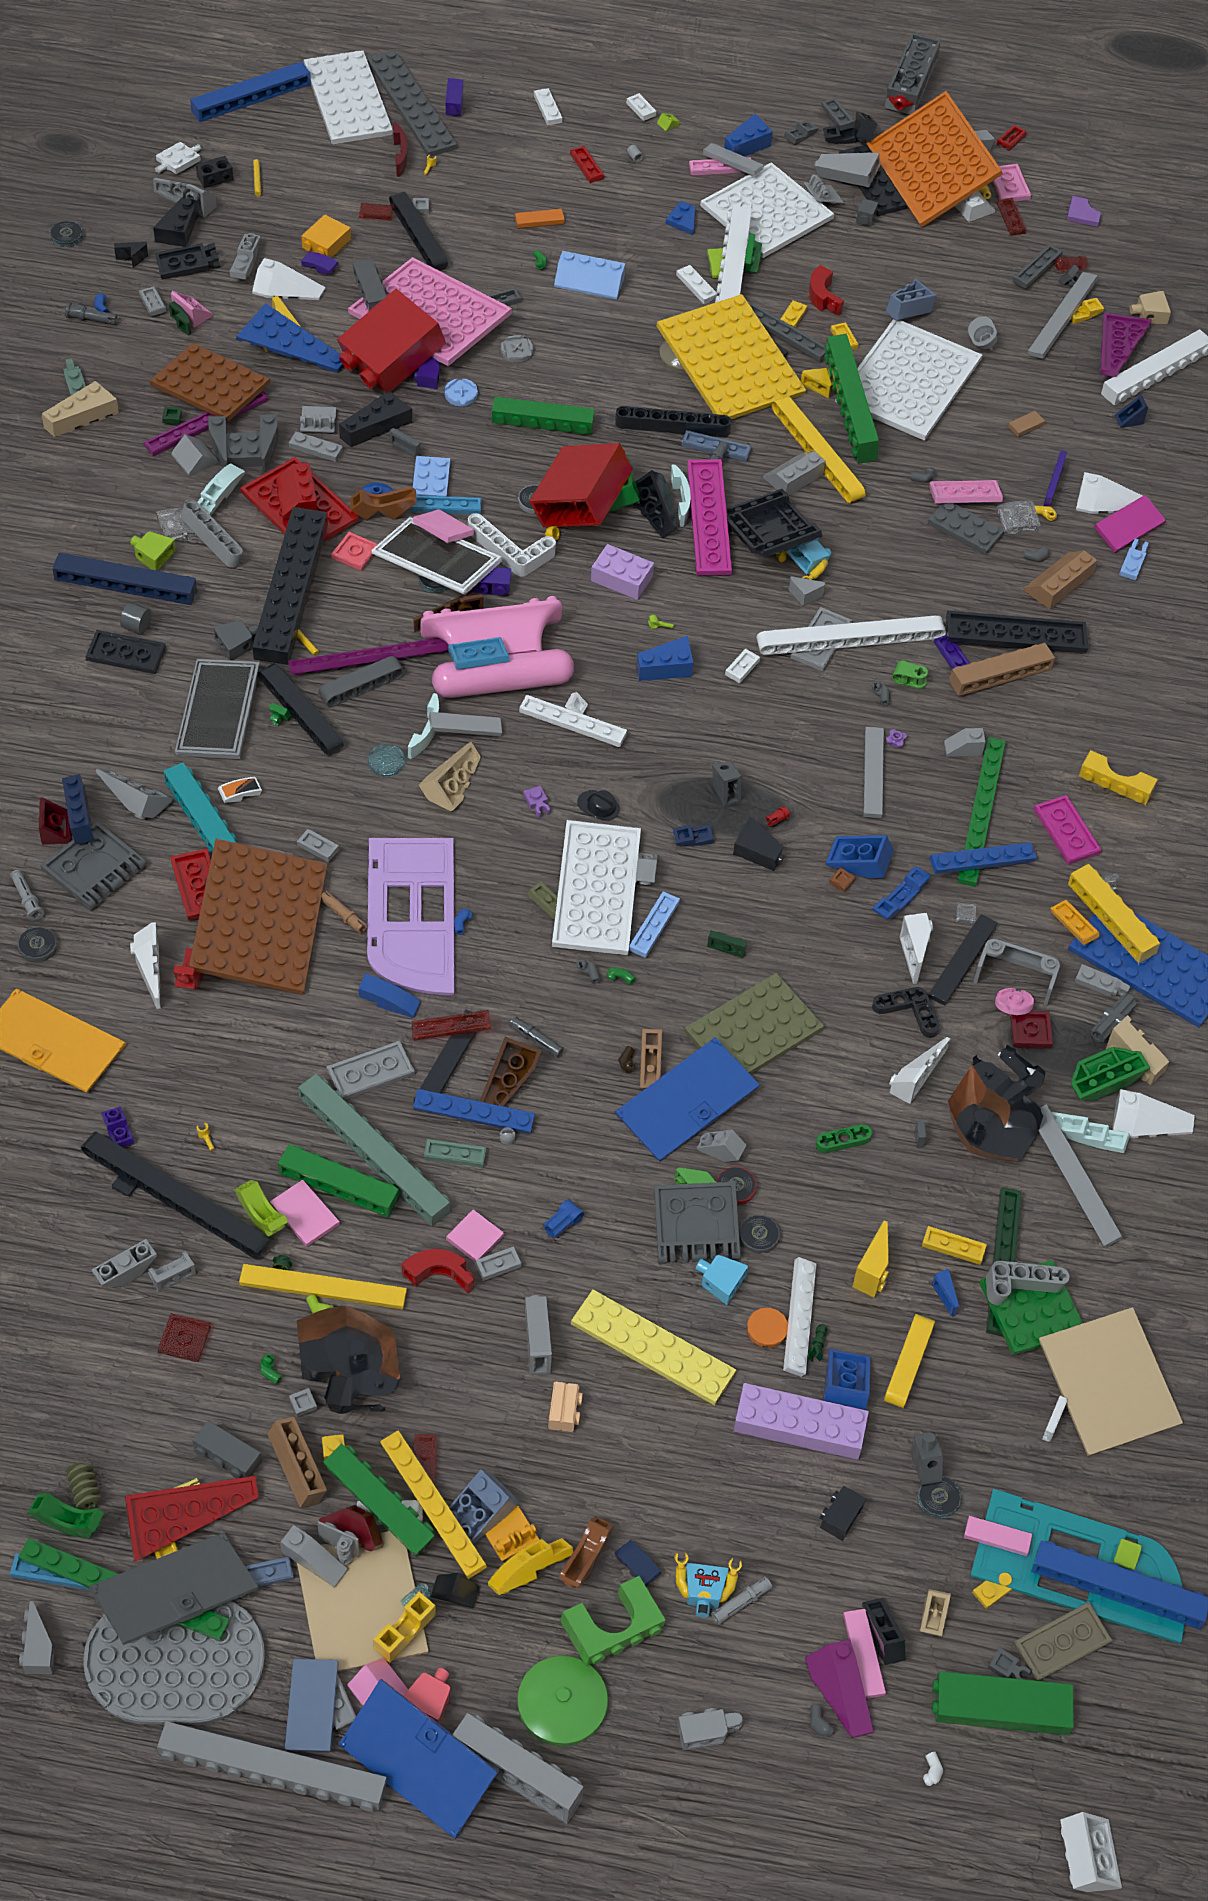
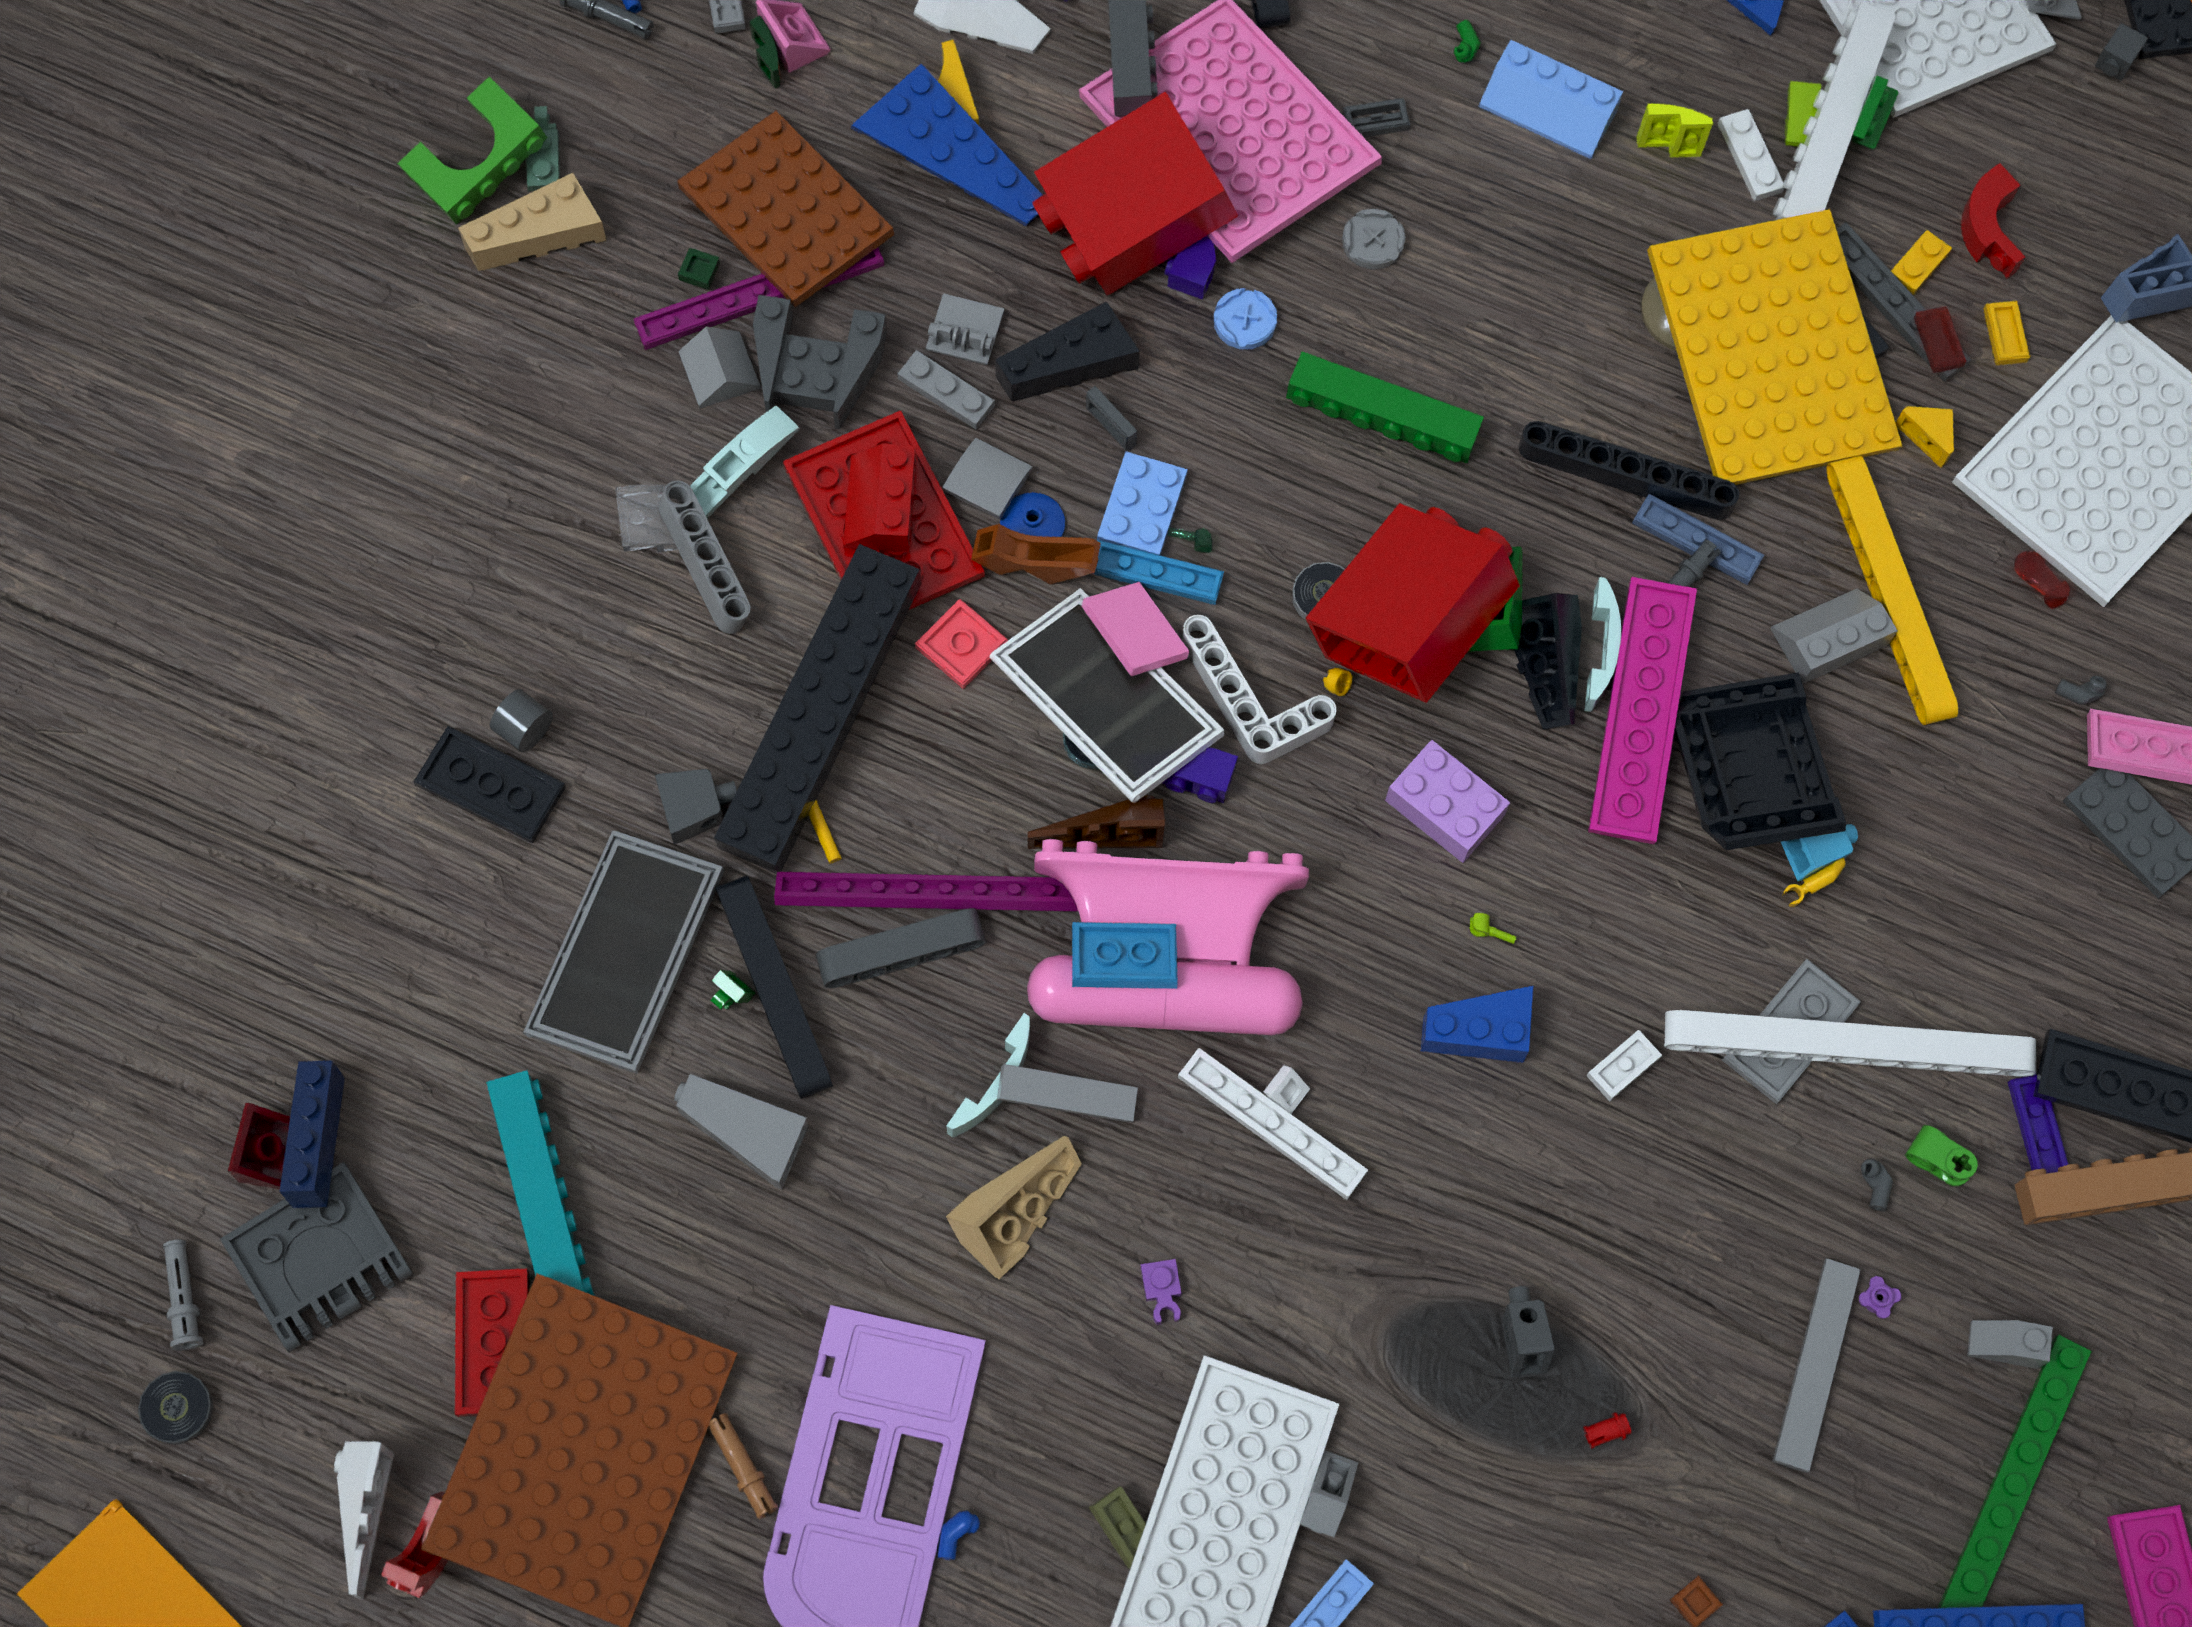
camera: 15 degrees right, 15 degrees up
(35, 401) = (461, 190): none -> bright green arch
(124, 578) = (525, 623): dark blue brick -> none
(134, 795) = (429, 1122): light grey wedge -> none
(153, 549) = (591, 568): lime torso -> none
(237, 789) = (620, 1143): slope -> none
(301, 769) = (748, 1128): none -> light grey slope
(318, 845) = (731, 1303): light grey plate -> none
(347, 479) = (987, 478): none -> light grey slope
(386, 760) = (904, 1133): clear light blue tile -> none
(466, 486) = (1201, 538): none -> clear green hand
(598, 804) = (1275, 1322): black piece -> none
(655, 275) = (1674, 127): none -> neon yellow slope
(693, 836) = (1436, 1436): dark blue slope -> none
(758, 846) = (1553, 1493): black slope -> none
(806, 590) = (1788, 916): light grey slope -> none
(811, 341) = (1939, 339): none -> clear red tile
(851, 399) = (1983, 499): green brick -> none
(861, 855) = (1743, 1559): blue slope -> none
(884, 430) = (2034, 571): none -> clear red piece

